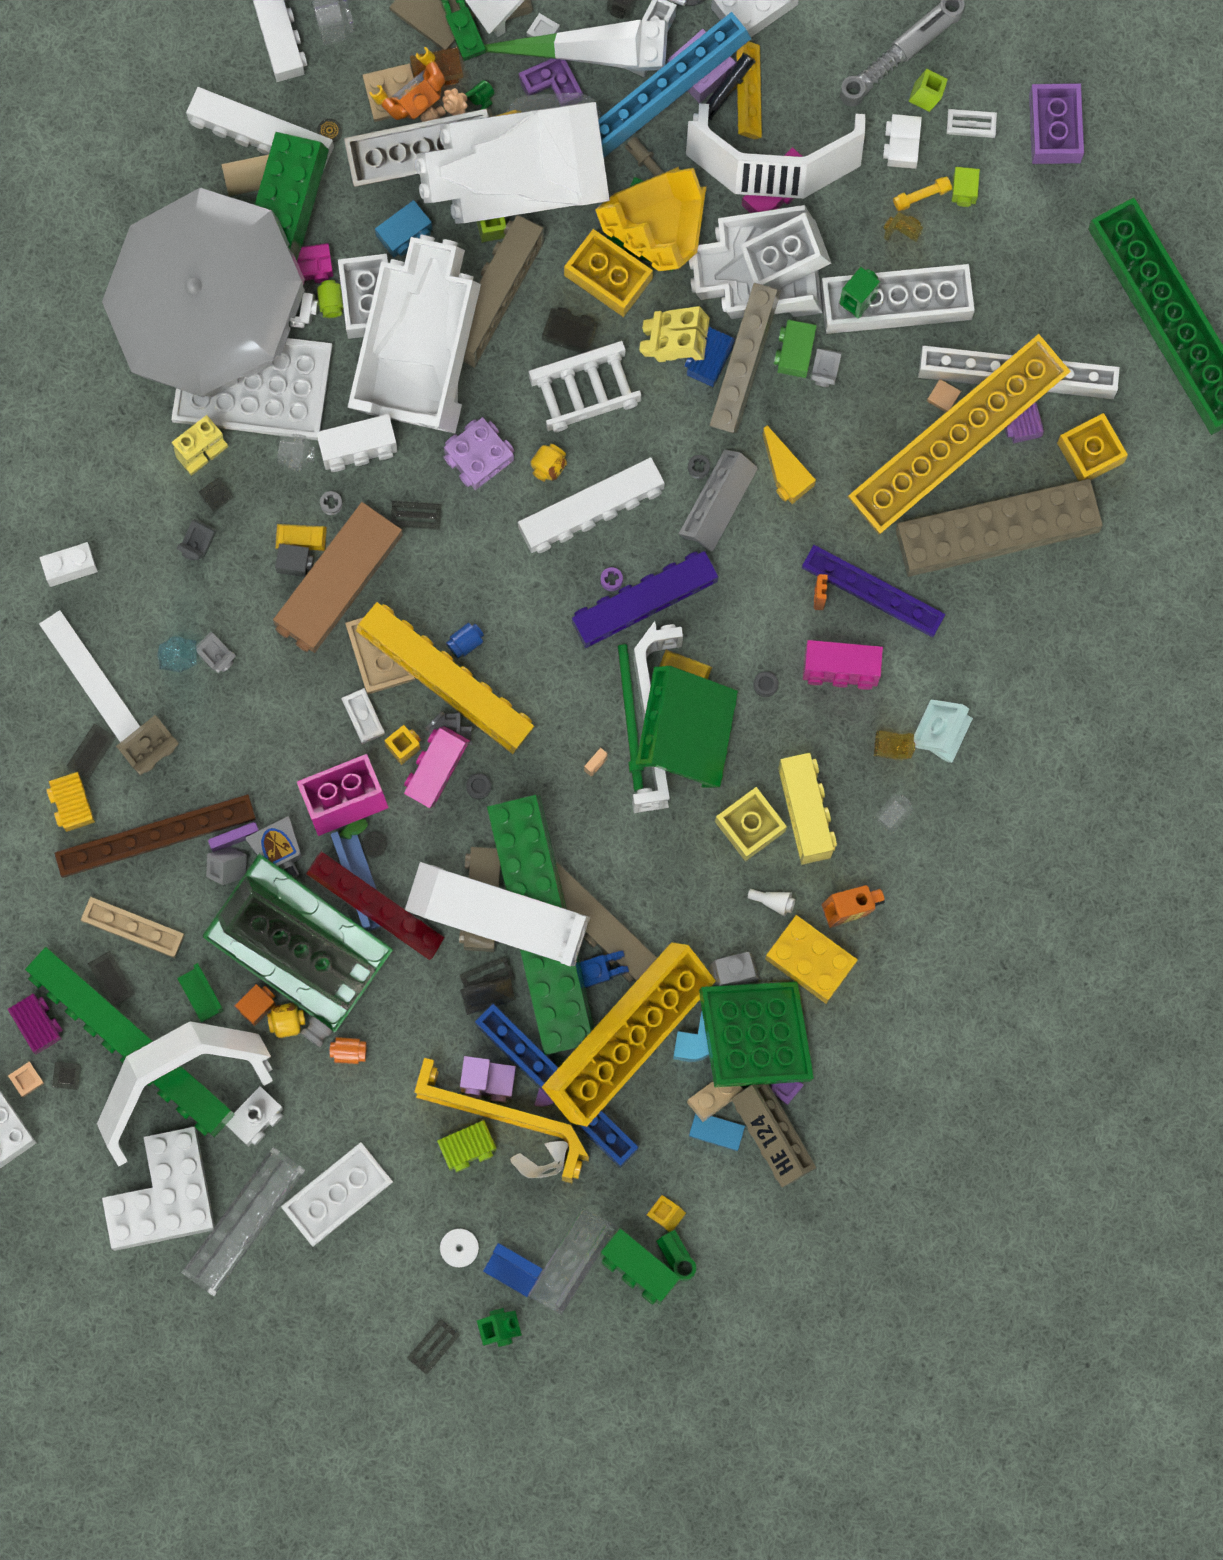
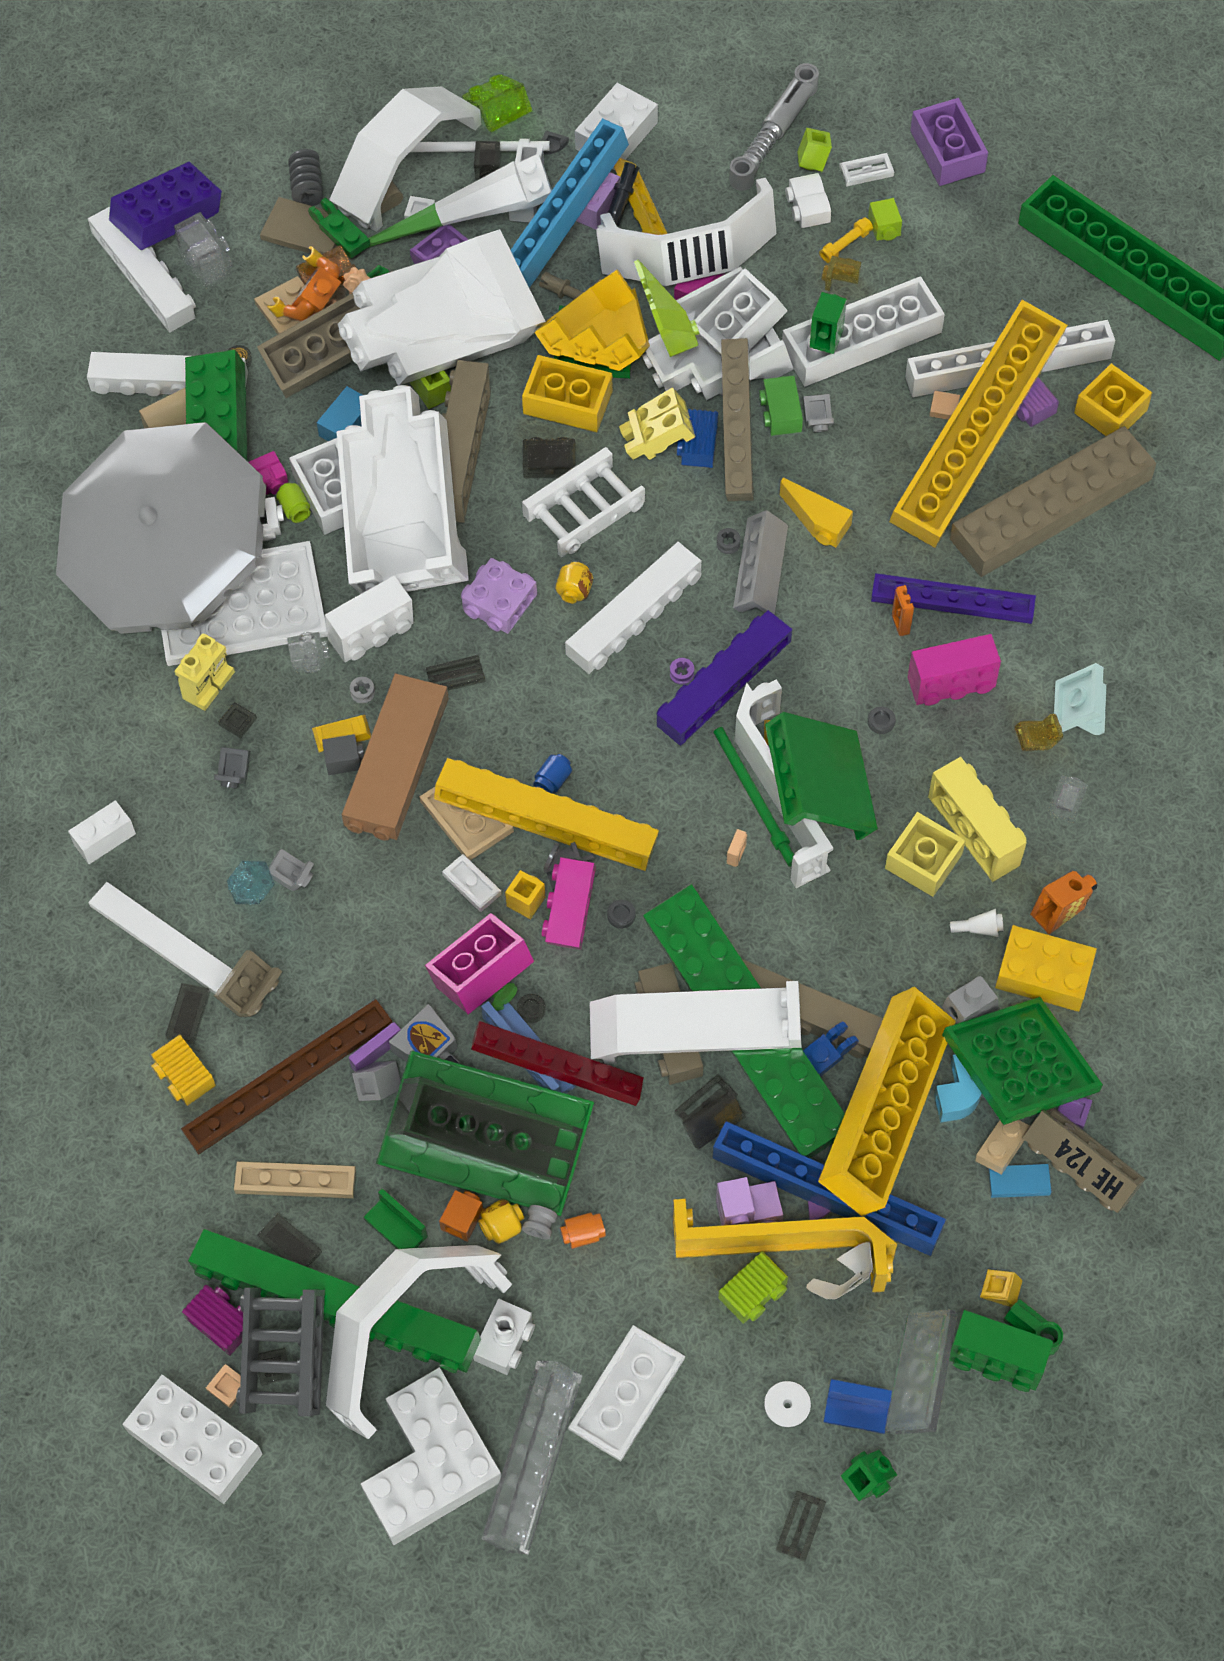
camera: 15 degrees left, 15 degrees down
(98, 1067) = (307, 1367): none -> dark grey fence
(719, 237) = (671, 319): none -> lime wedge

